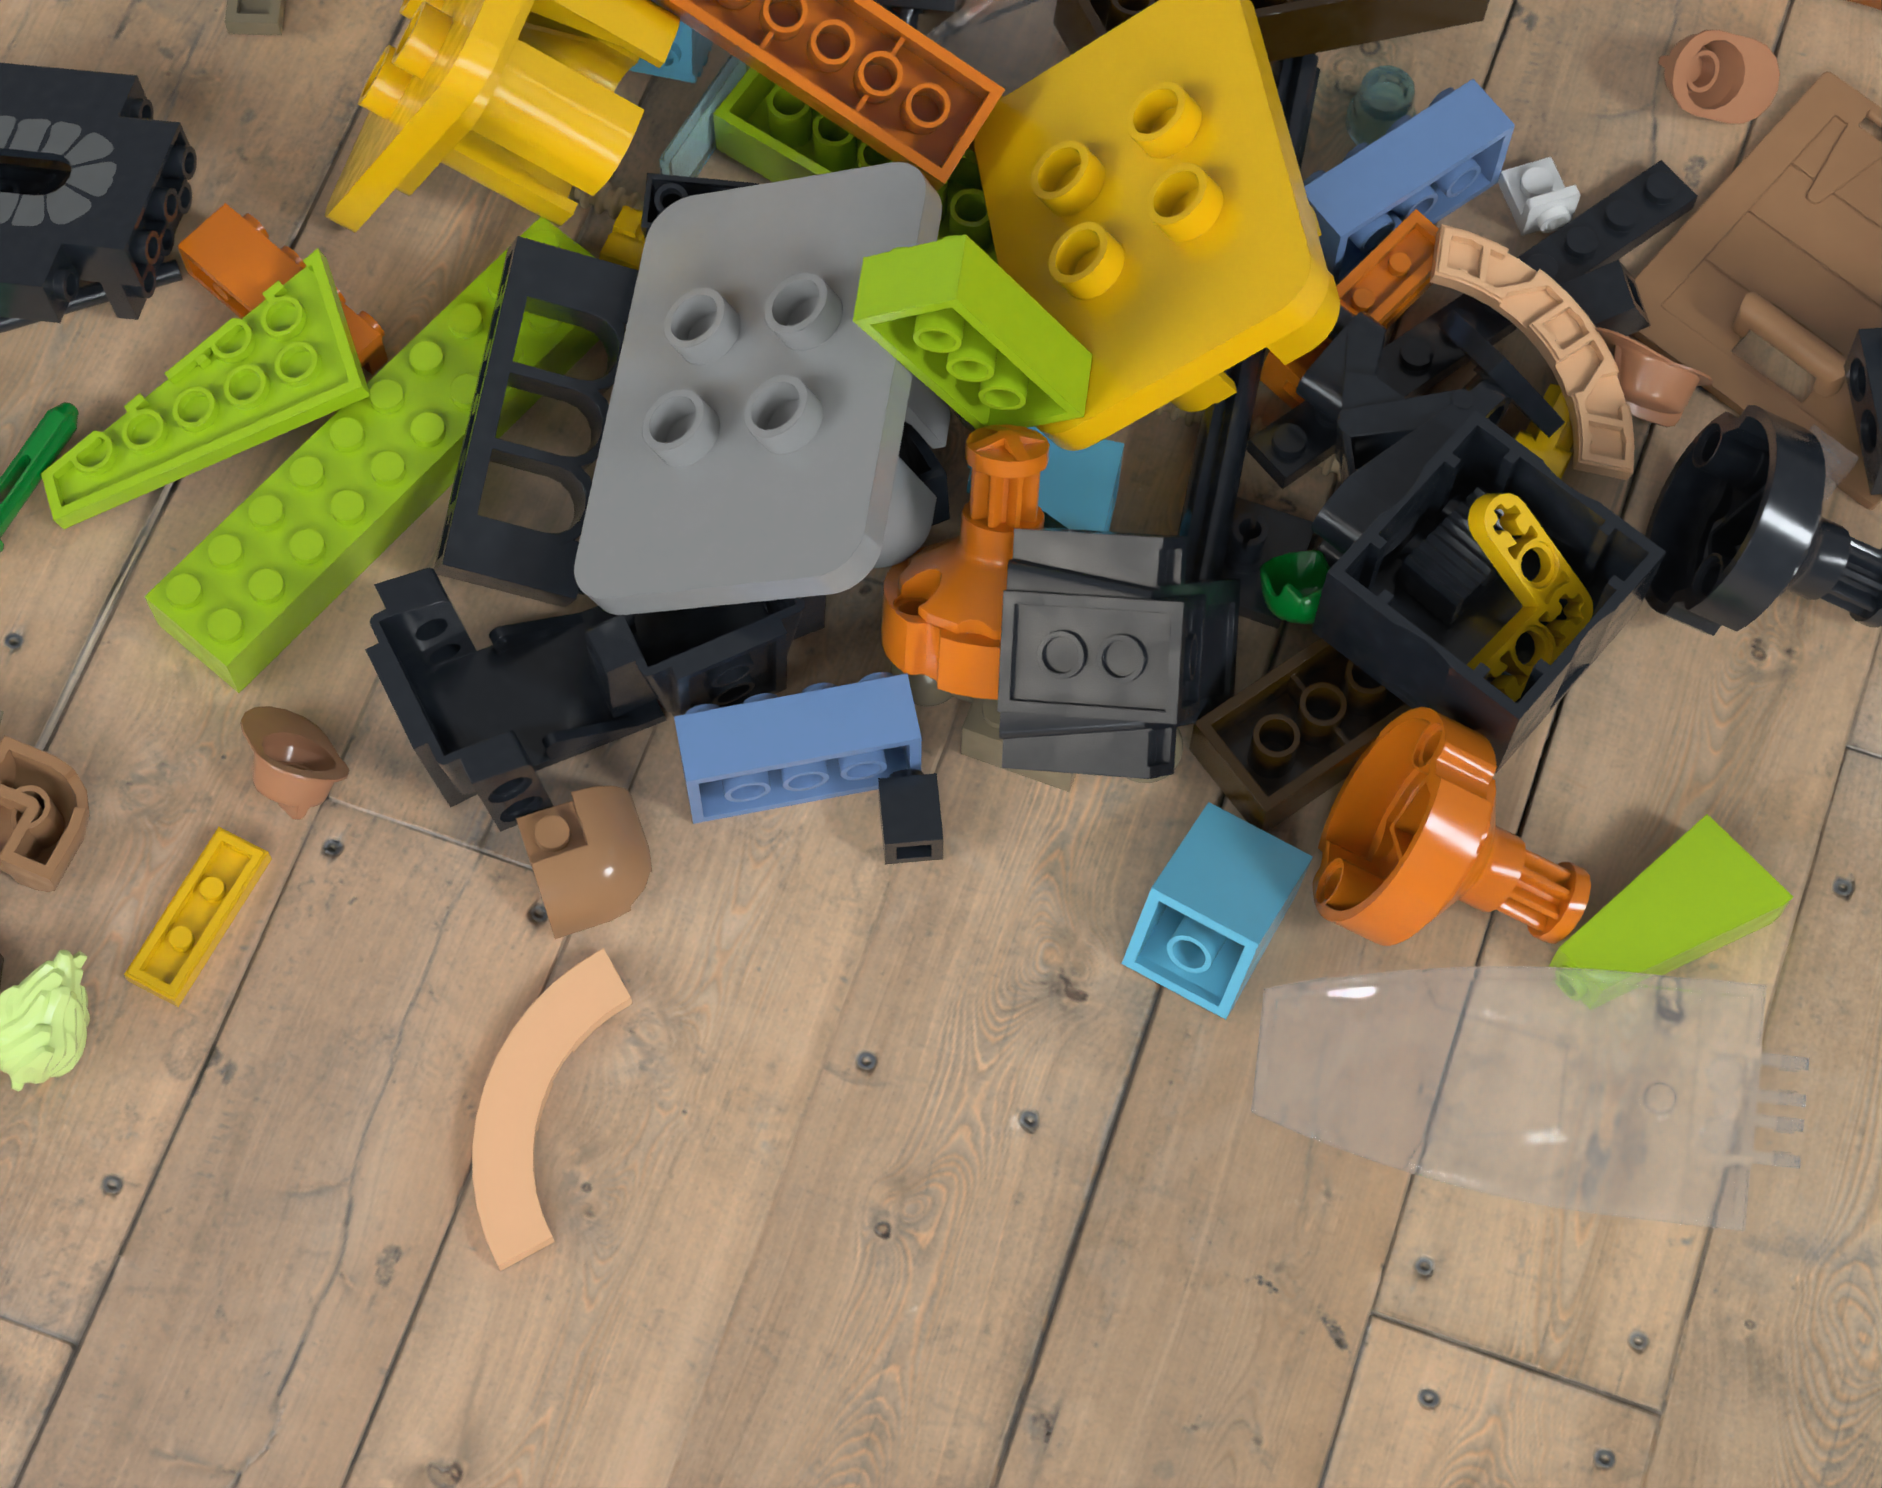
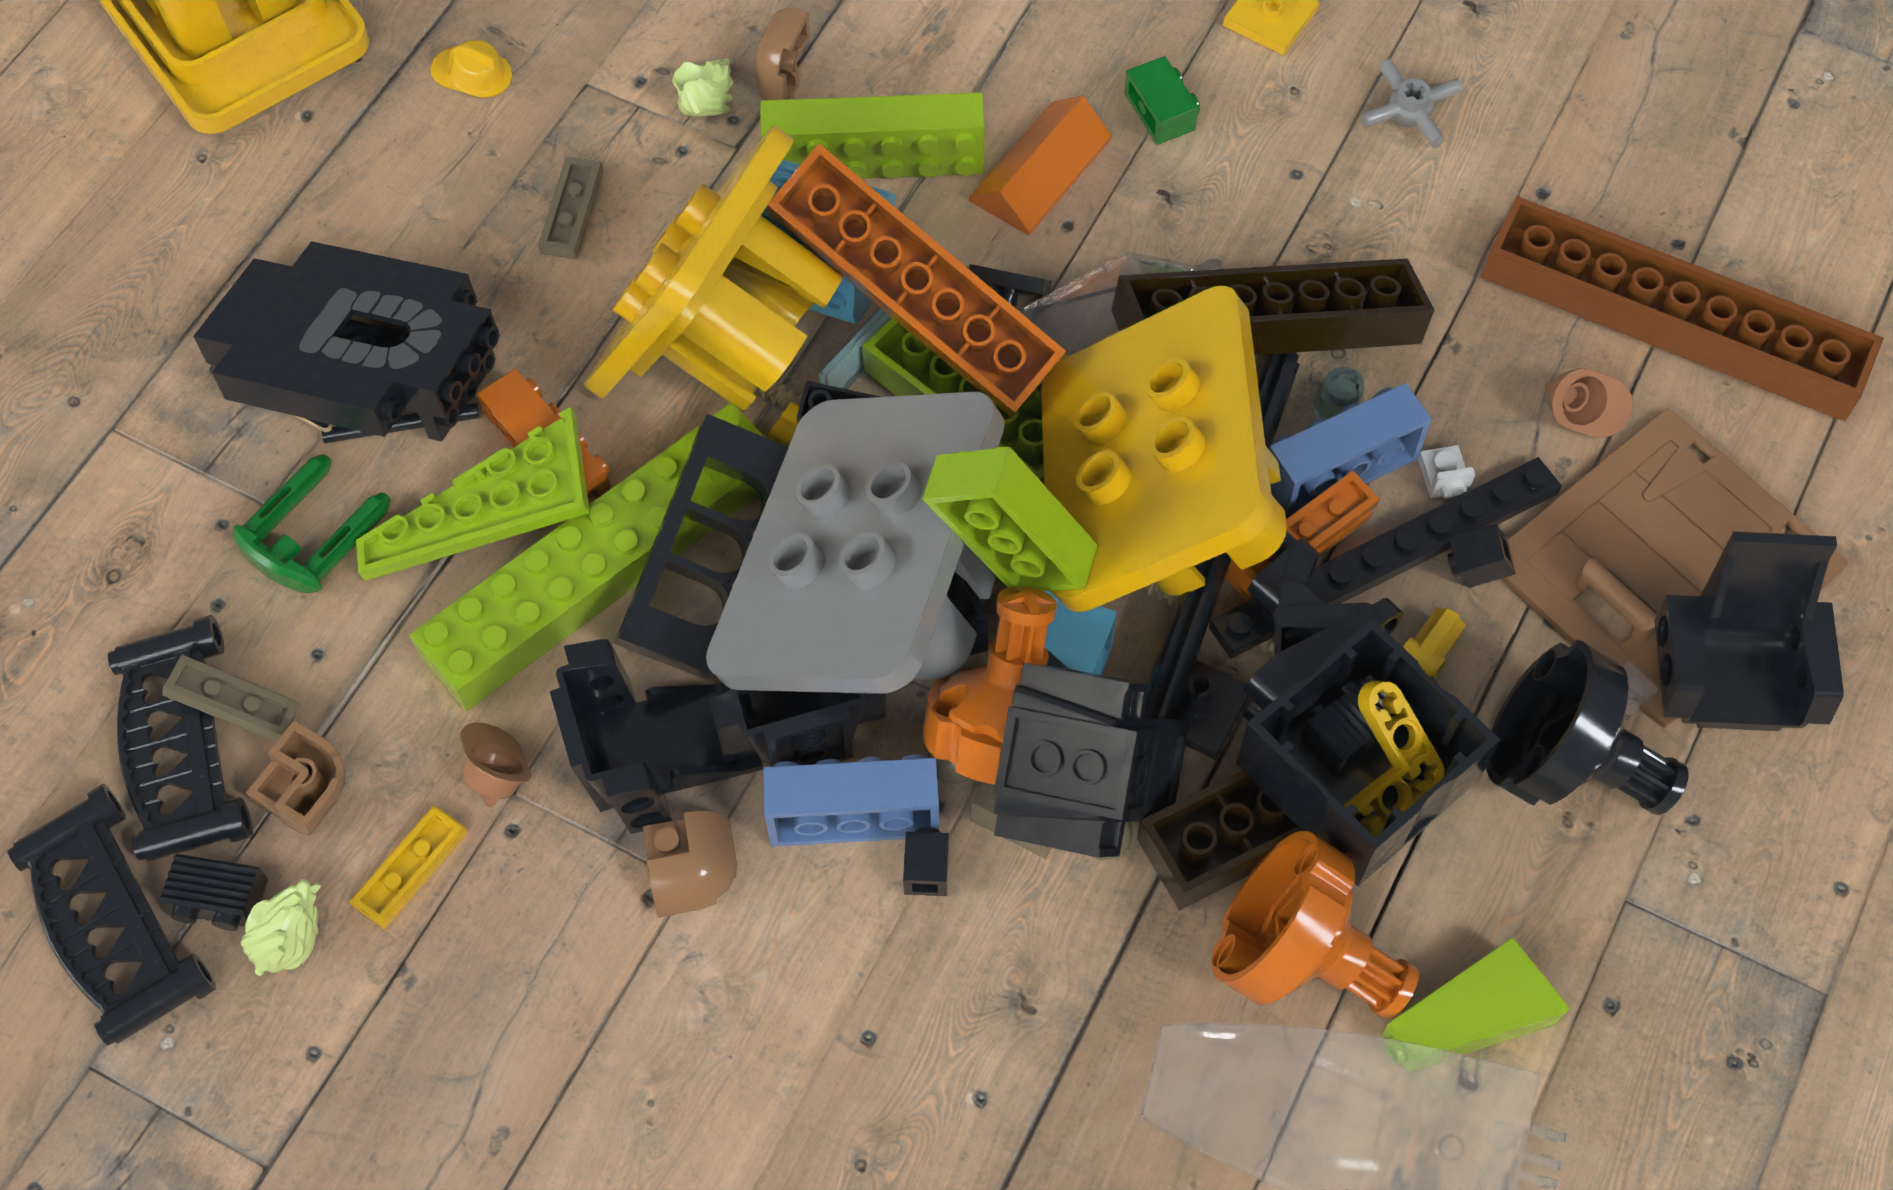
camera: 10 degrees right, 5 degrees down
(516, 1098) = (609, 1031): light nougat tile -> none
(1215, 909) = (1138, 960): medium azure slope -> none
(1294, 585) = (1226, 728): green hair -> none
(1494, 366) = (1399, 595): black tile -> none
(1561, 334) = (1447, 570): light nougat tile -> none
(1650, 382) = (1507, 614): nougat piece -> none

